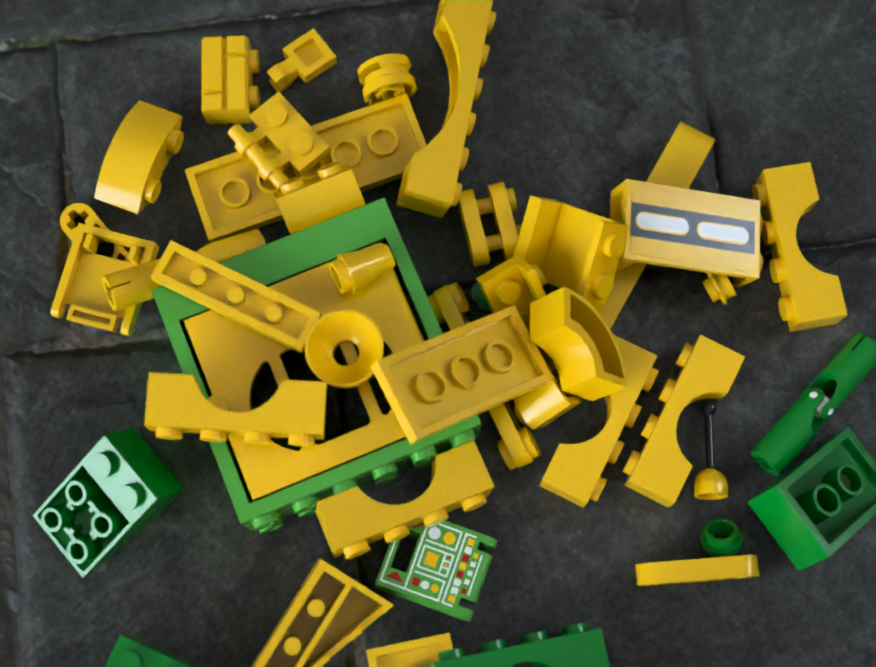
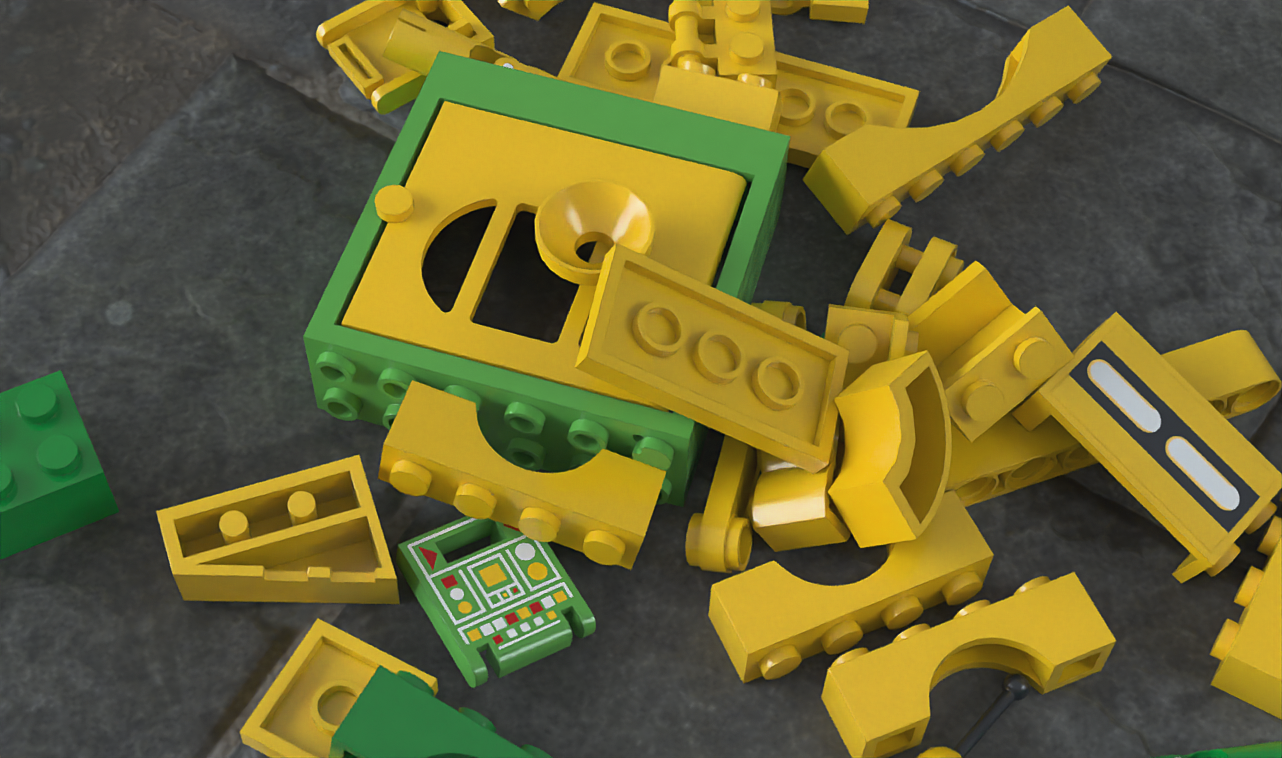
camera: 35 degrees right, 20 degrees down
(107, 499) = (195, 249): green slope -> none
(179, 407) = (470, 251): yellow arch -> none
(235, 296) = (520, 102): yellow plate -> none
(358, 268) = (694, 173): yellow cone -> none
(386, 77) = (909, 56): yellow wheel -> none
(719, 287) = (1150, 552): yellow plate -> none

